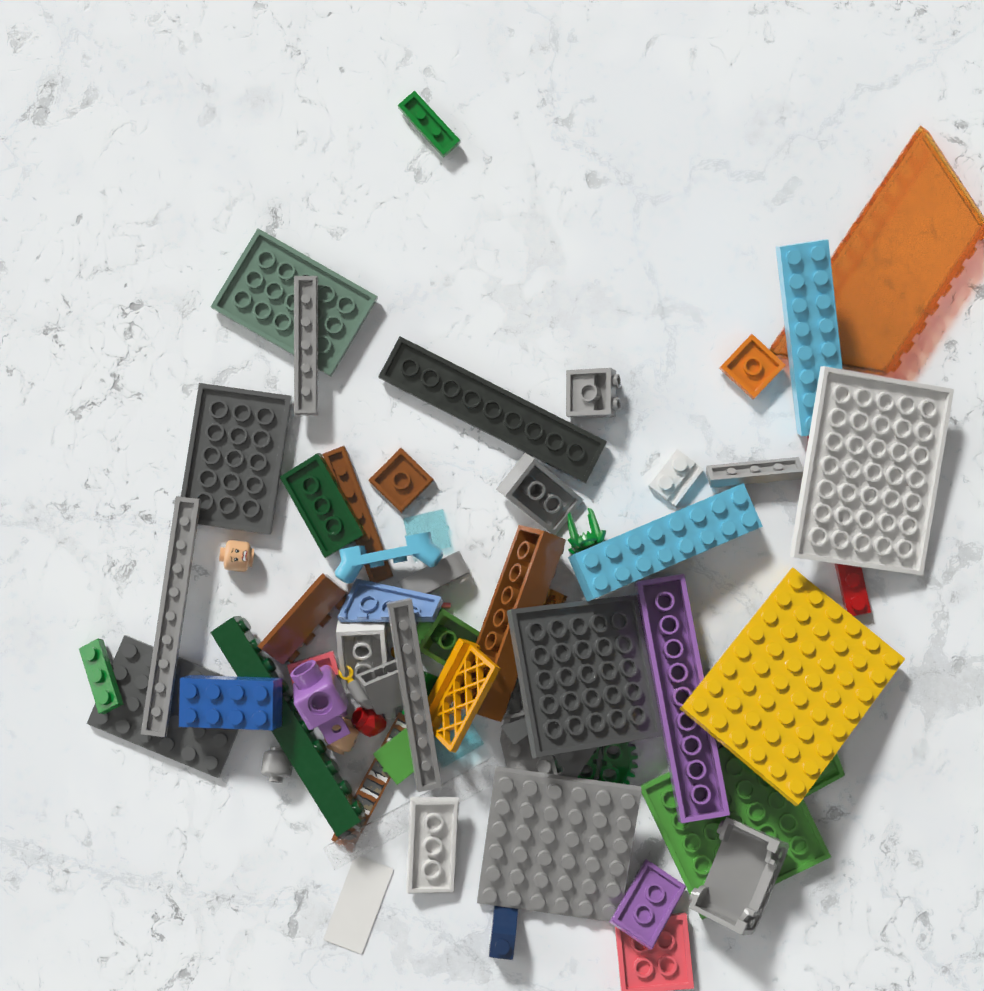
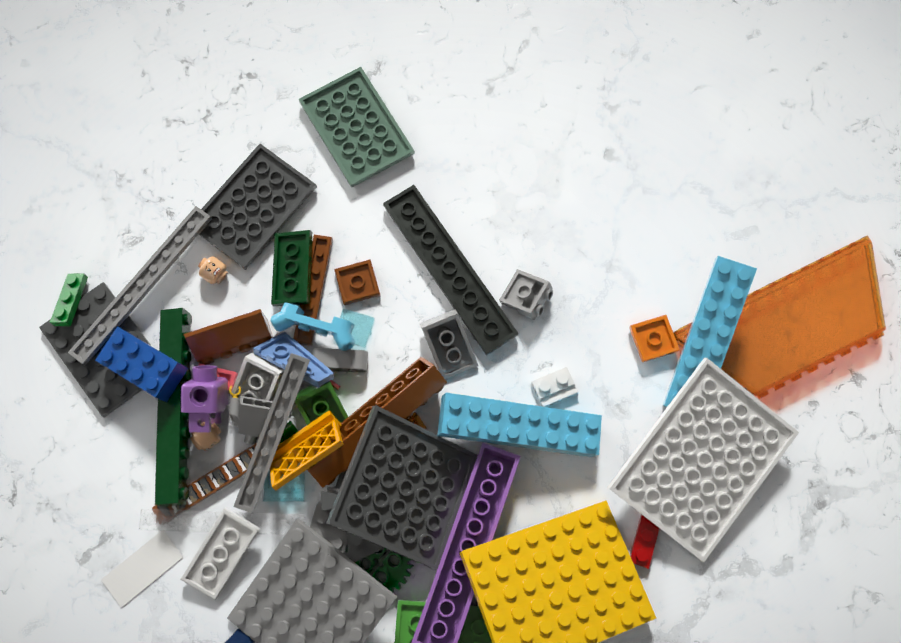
camera: 30 degrees right, 10 degrees down
(276, 765) = (146, 430): light grey head -> none
(306, 345) = (345, 157): light grey tile -> none
(368, 722) = (230, 437): red rock -> none
(396, 757) = (233, 473): bright green piece -> none
(428, 124) = (515, 61): green plate -> none
(584, 541) = (455, 389): green piece -> none
(754, 472) = (614, 414): light grey plate -> none

